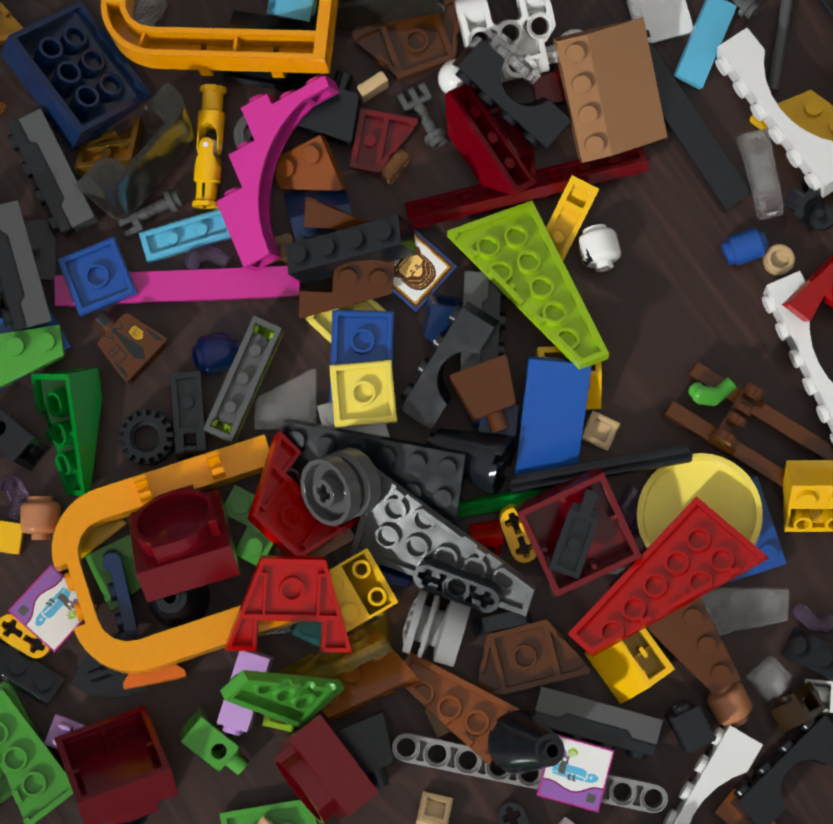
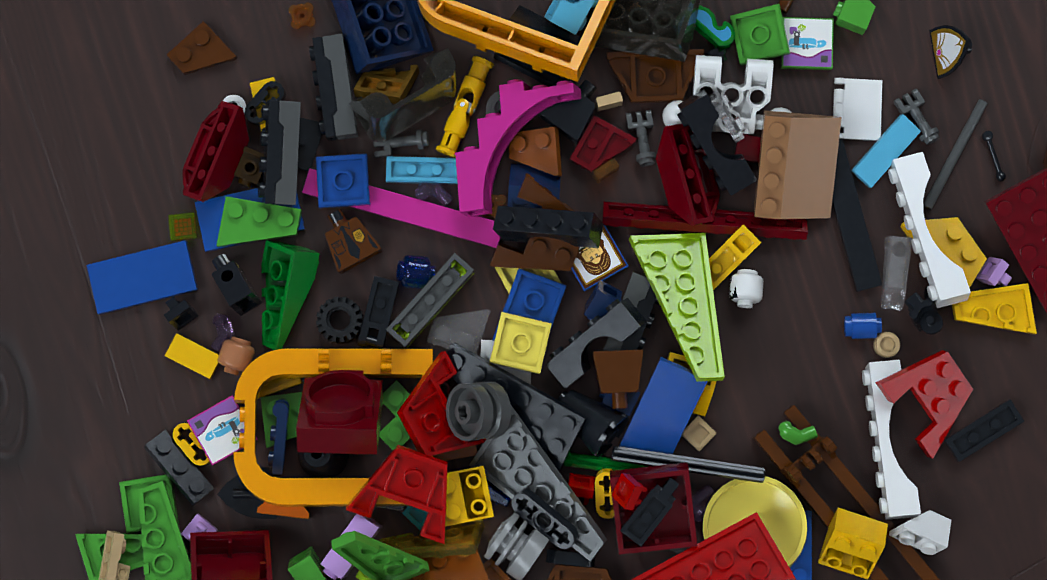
camera: 25 degrees right, 0 degrees up
(543, 521) = (628, 491): none -> red tile

